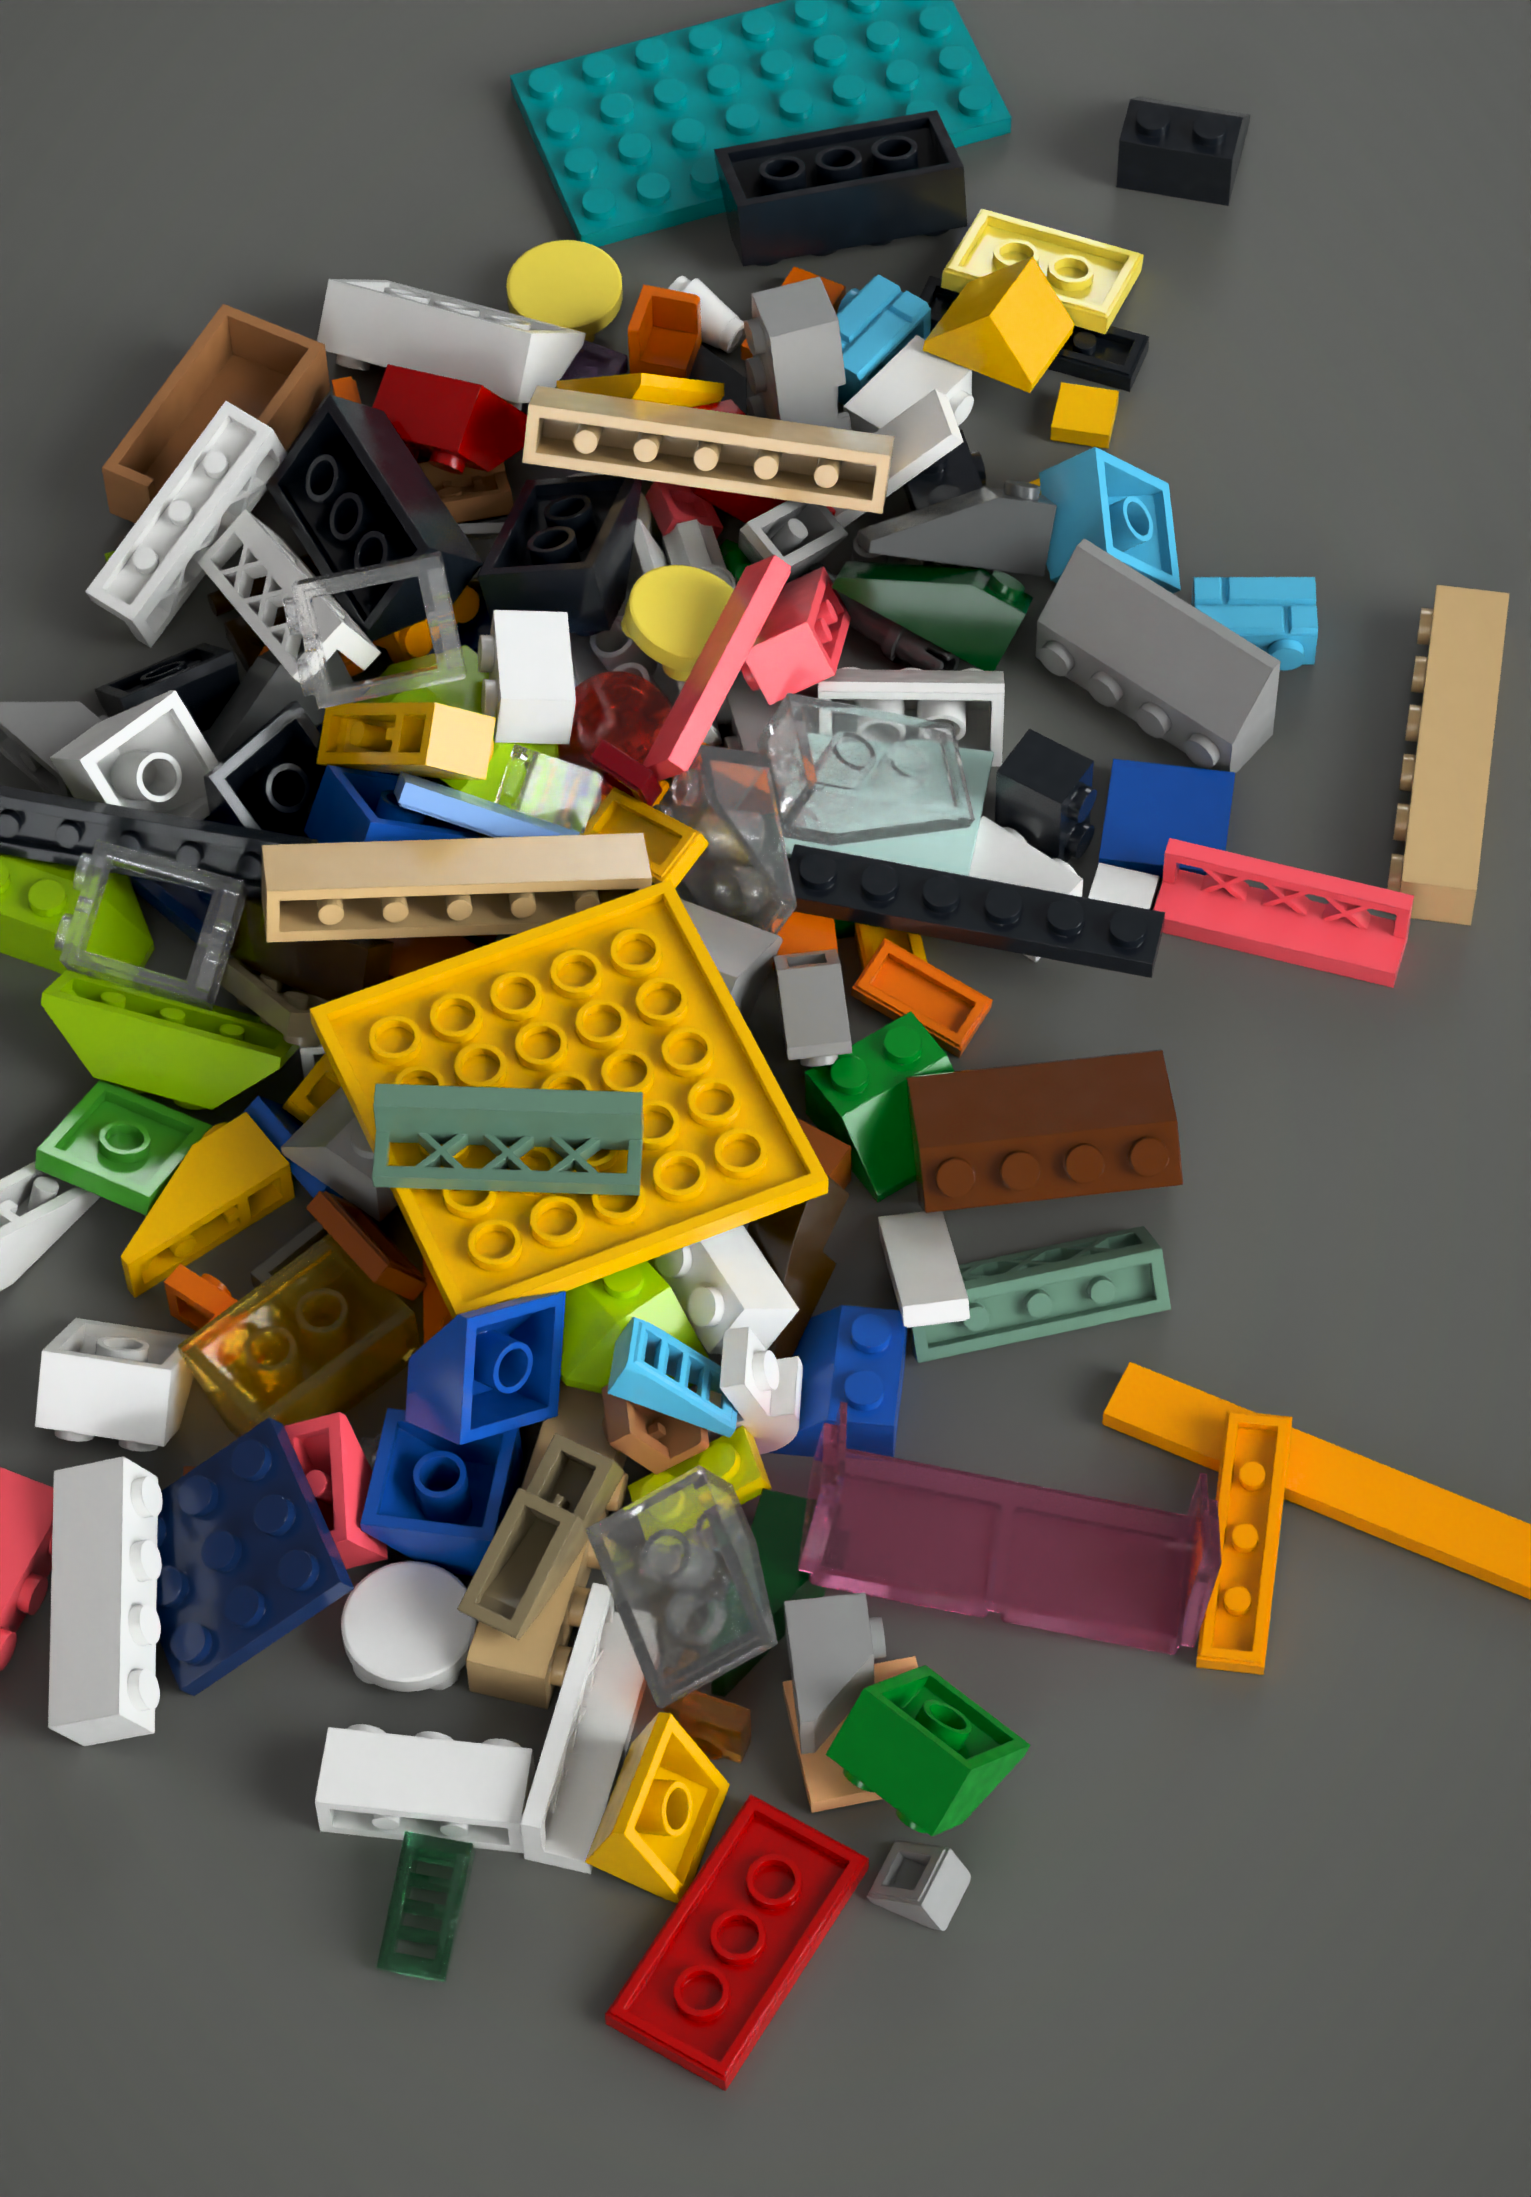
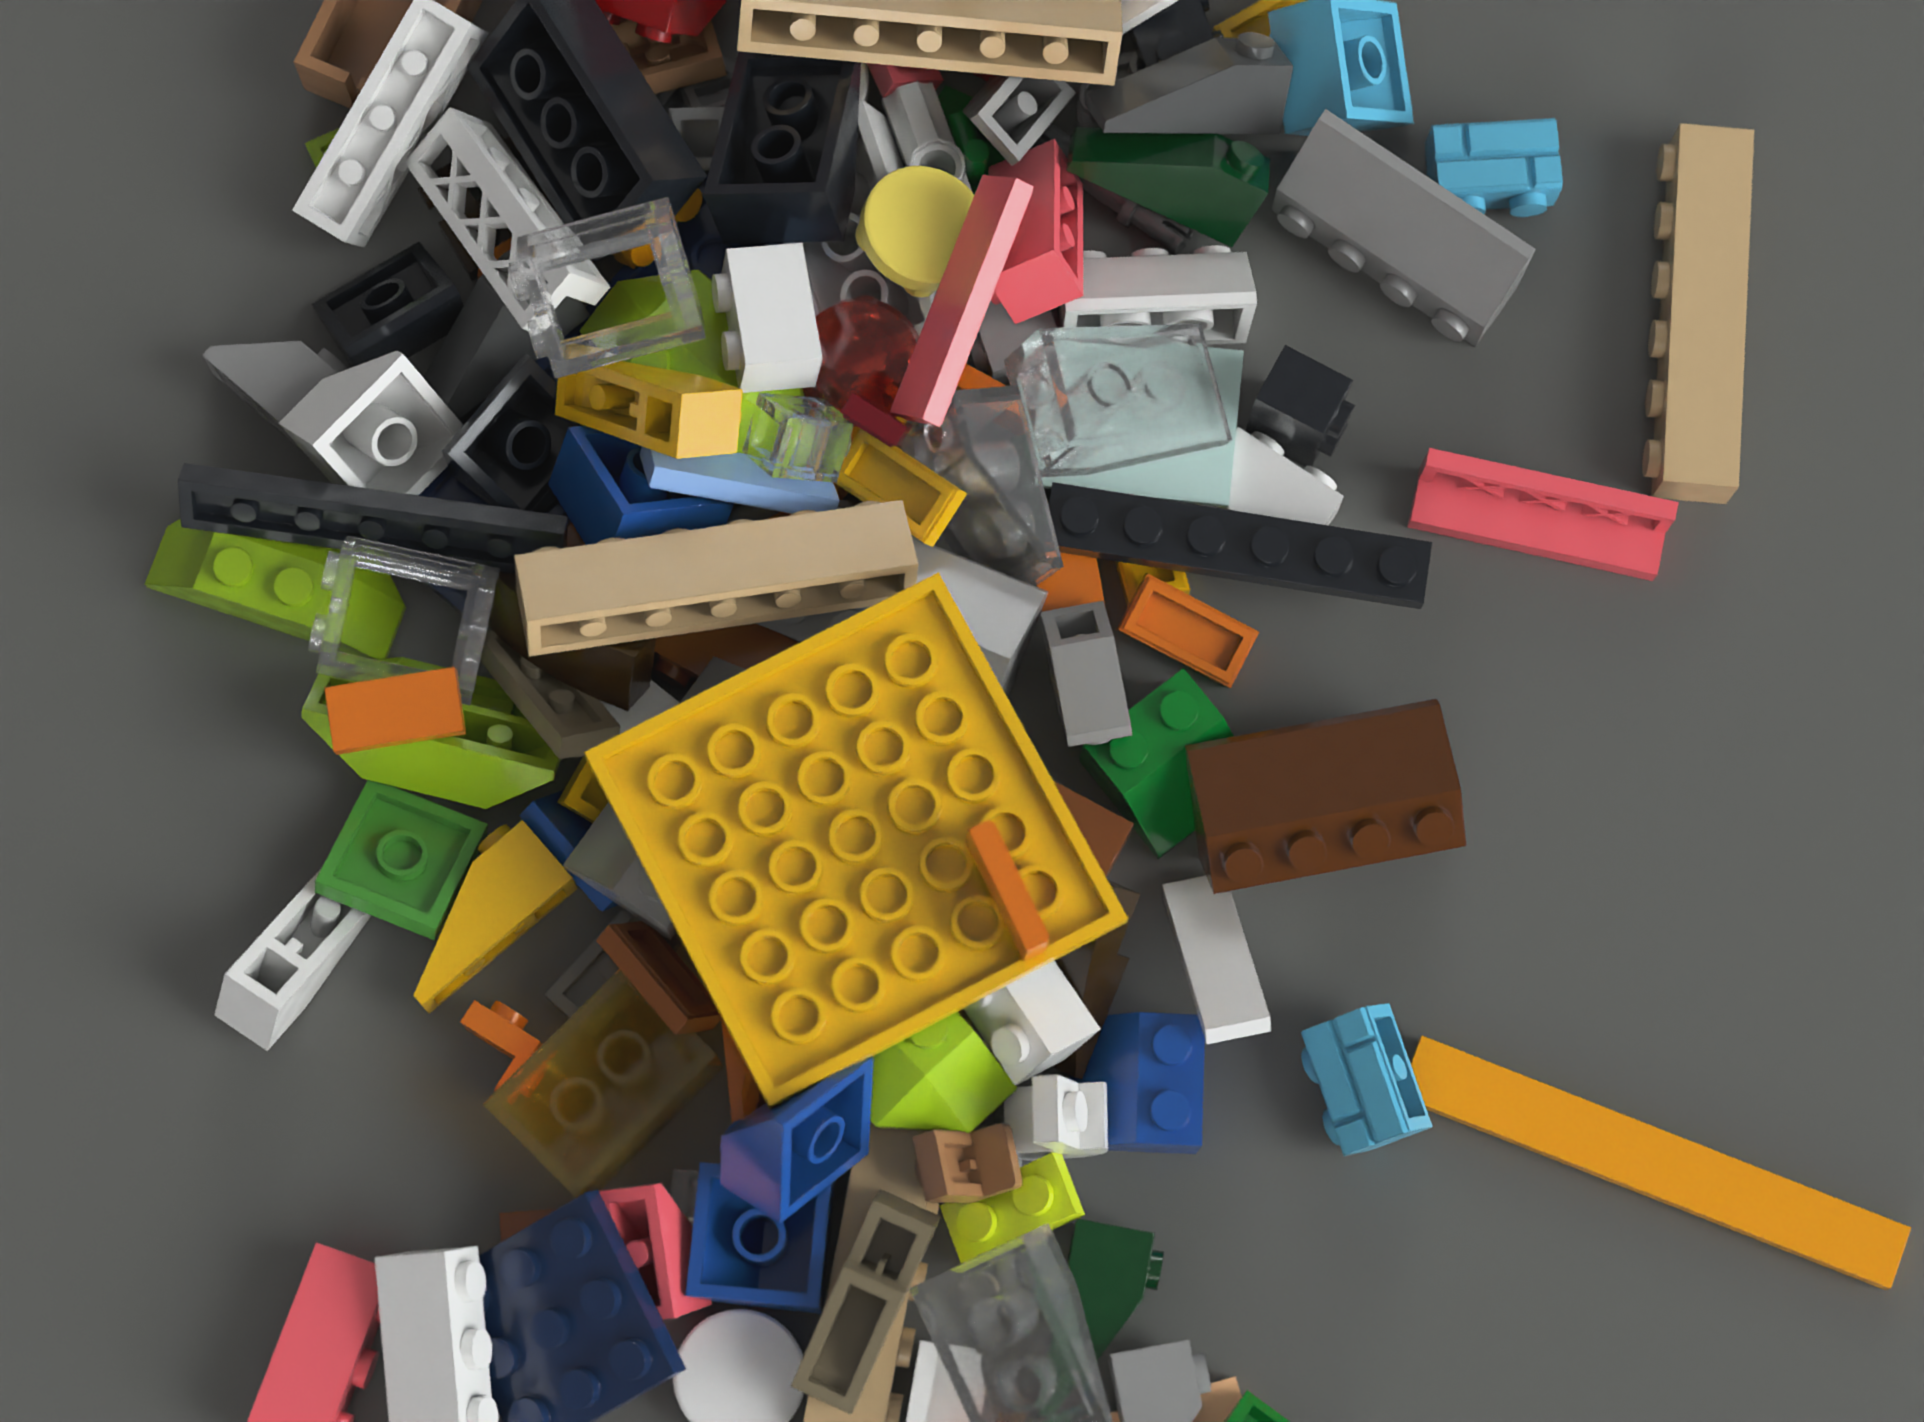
camera: 10 degrees left, 20 degrees up
(113, 1384) = (422, 1123): white slope -> none
(132, 993) = (395, 710): none -> orange tile
(508, 1118) = (803, 883): sand green fence -> none
(639, 1372) = (941, 1133): medium azure slope -> none
(709, 1135) = (1007, 890): none -> orange tile
(1008, 1548) = (1323, 1259): clear pink piece -> none
(1051, 1293) = (1344, 970): sand green fence -> none
(1066, 1390) = (1364, 1079): none -> medium azure brick
(1124, 886) = (1377, 499): white tile -> none
(1159, 803) = (1416, 400): blue tile -> none
(1249, 1525) = (1546, 1230): light orange tile -> none

